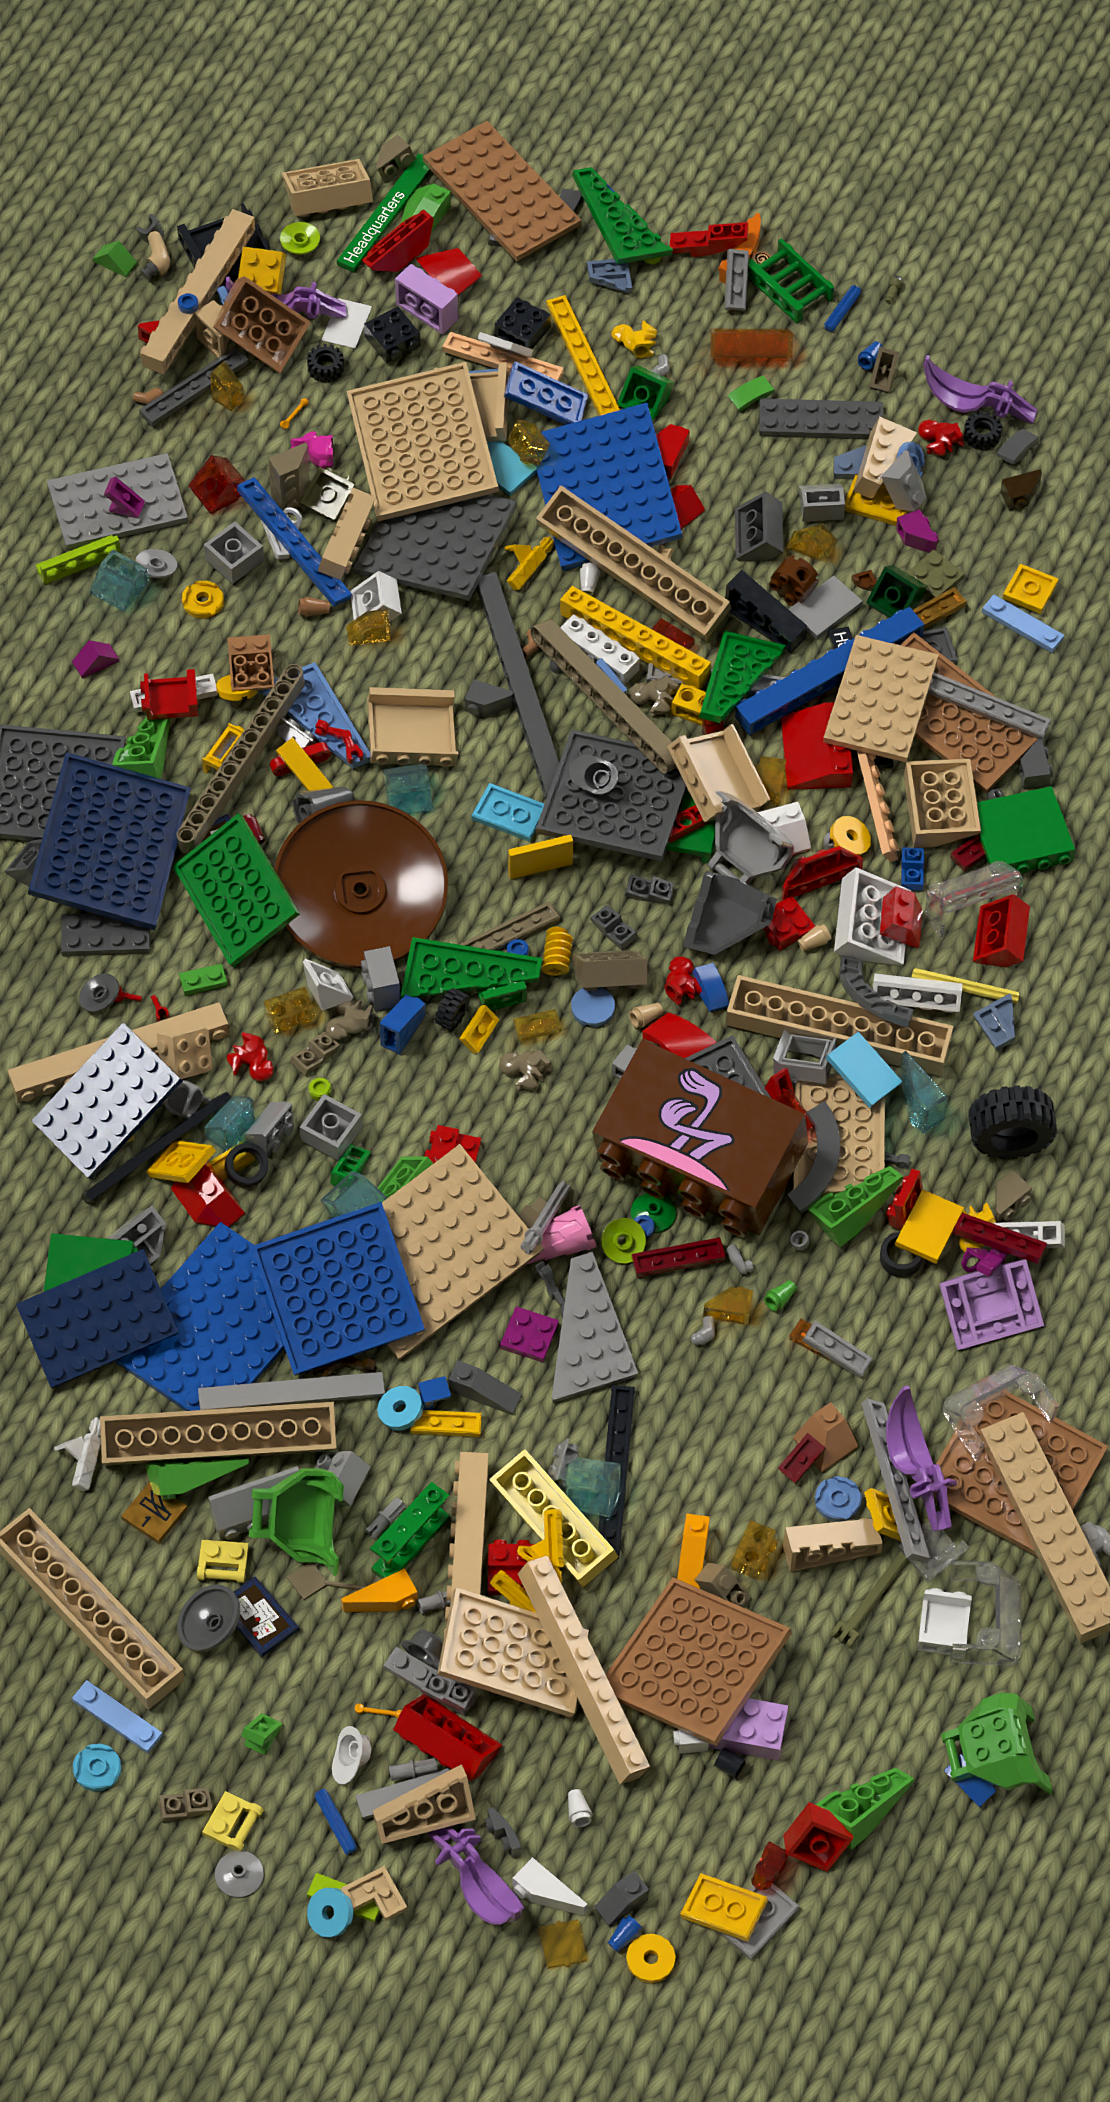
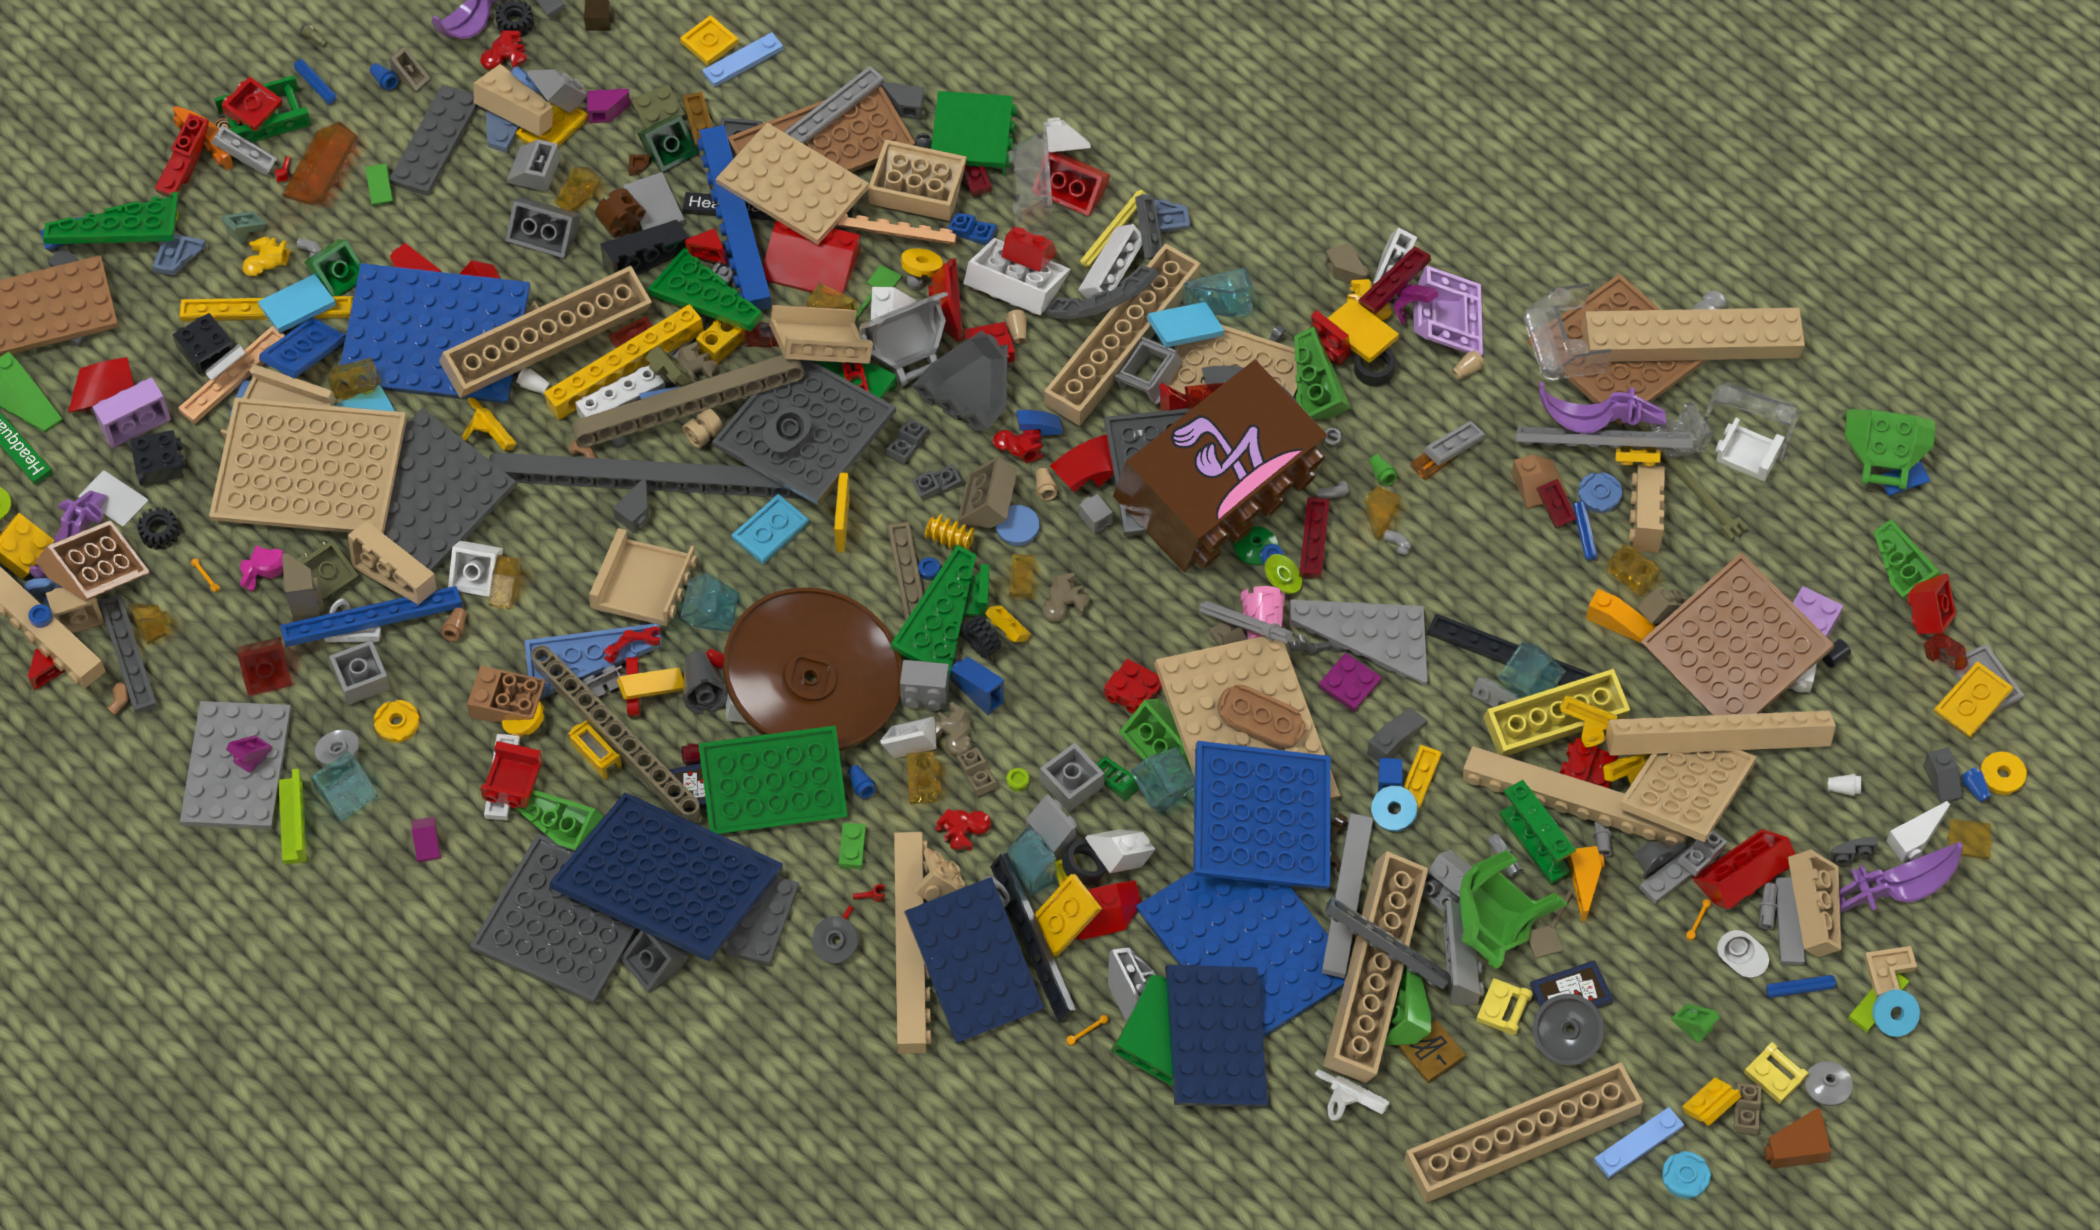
camera: 70 degrees left, 0 degrees up
(68, 1213) = (1071, 1040): none -> light orange hinge
(161, 1858) = (1799, 1143): none -> dark orange slope
(178, 1767) = (1711, 1101): none -> yellow plate
(233, 1424) = (1392, 946): none -> dark grey plate
(268, 964) = (861, 782): none -> blue cone
(269, 1187) = (1121, 849): none -> white slope
(401, 244) = (47, 414): red wedge -> none
(442, 1256) = (1261, 716): none -> medium nougat tile
(588, 721) = (703, 428): none -> tan wheel
(592, 376) = (296, 303): none -> medium azure tile
(633, 671) = (668, 367): none -> olive plate
(658, 306) = (241, 224): none -> sand green slope
(731, 320) = (282, 174): none -> red hand
(782, 264) = (251, 104): none -> red plate
(784, 1496) = (1585, 531): none -> blue axle
(792, 659) = (707, 247): none -> red slope
(822, 815) = (881, 278): none -> bright green piece
(938, 1338) = (1468, 364): none -> tan cone
(972, 1008) = (1148, 225): none -> dark grey tile
(1012, 1122) = (1287, 228): black tyre -> none
(1045, 905) = (1063, 136): none -> white slope

